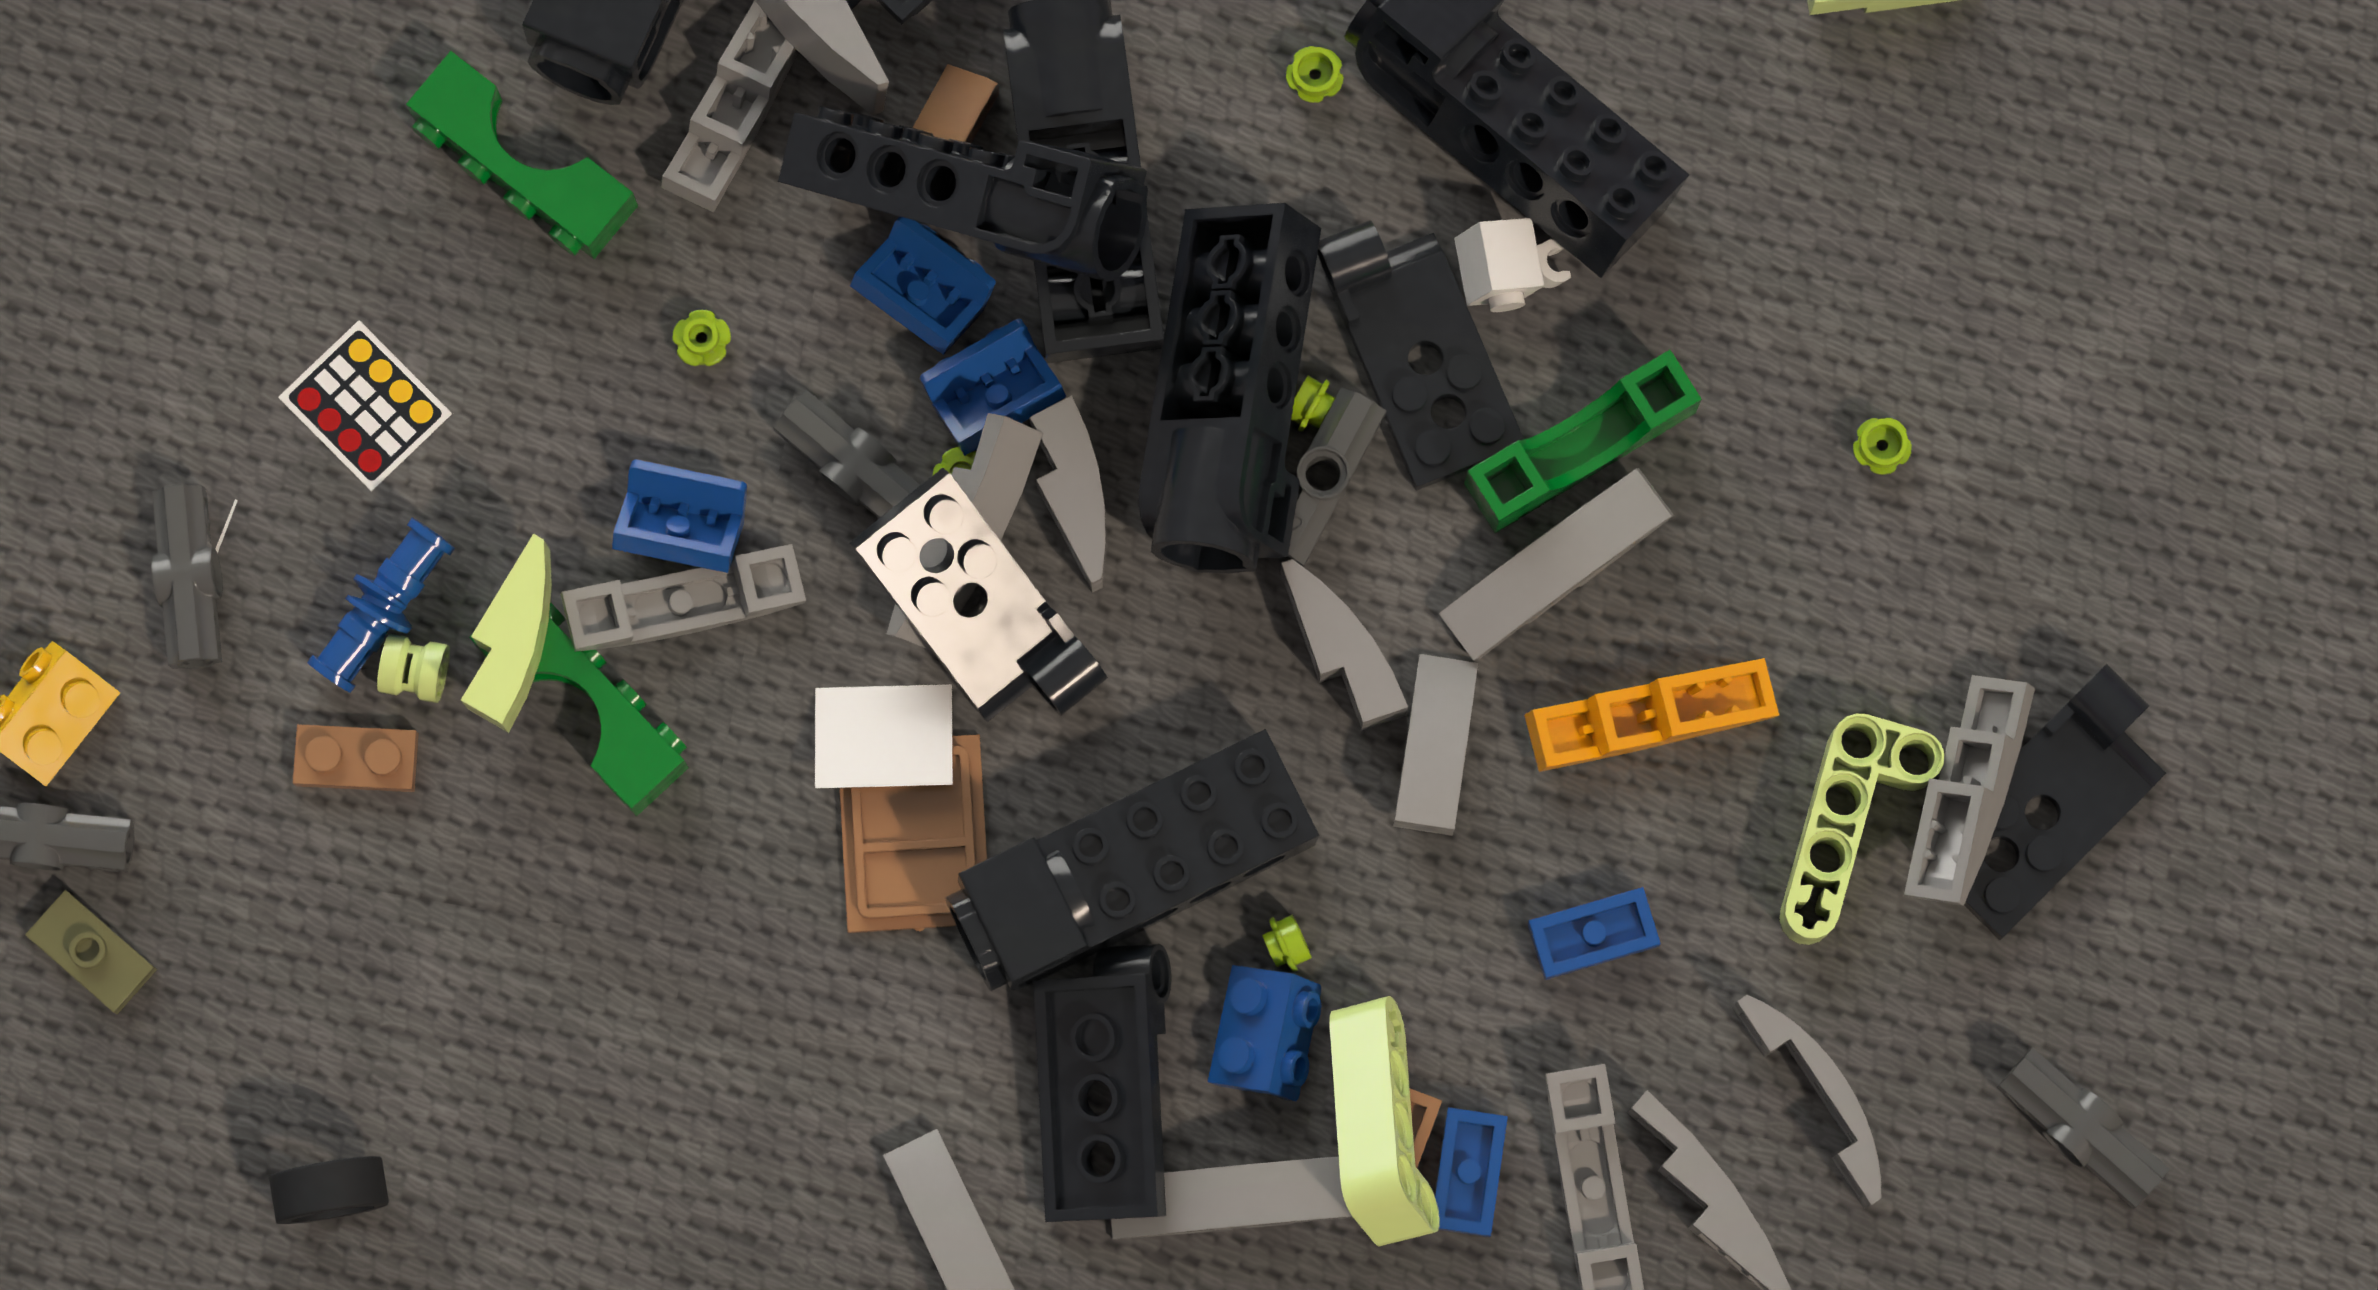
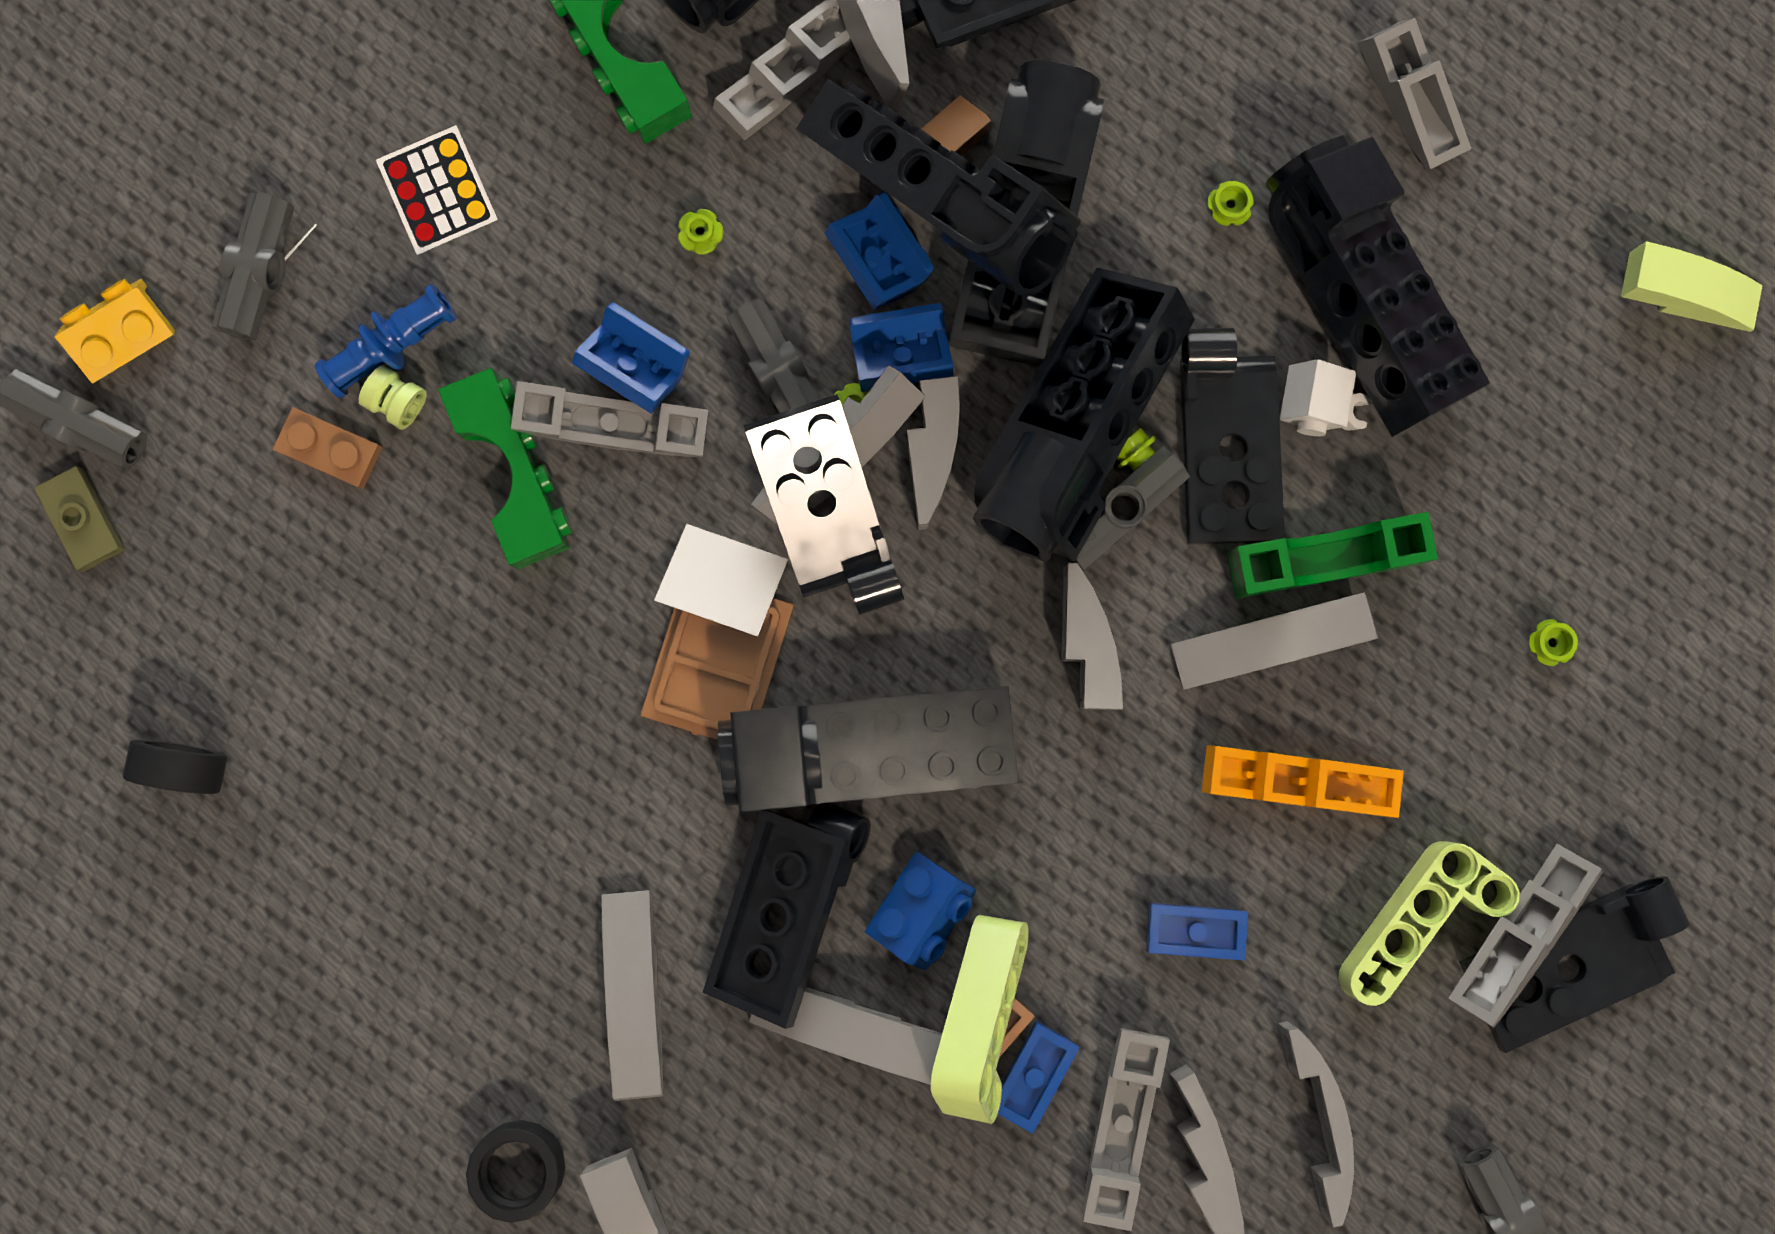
camera: 20 degrees right, 5 degrees up
(514, 637) = (467, 401): yellowish green slope -> none
(1286, 943) = (963, 850): lime plate -> none
(1436, 745) = (1132, 743): light grey slope -> none

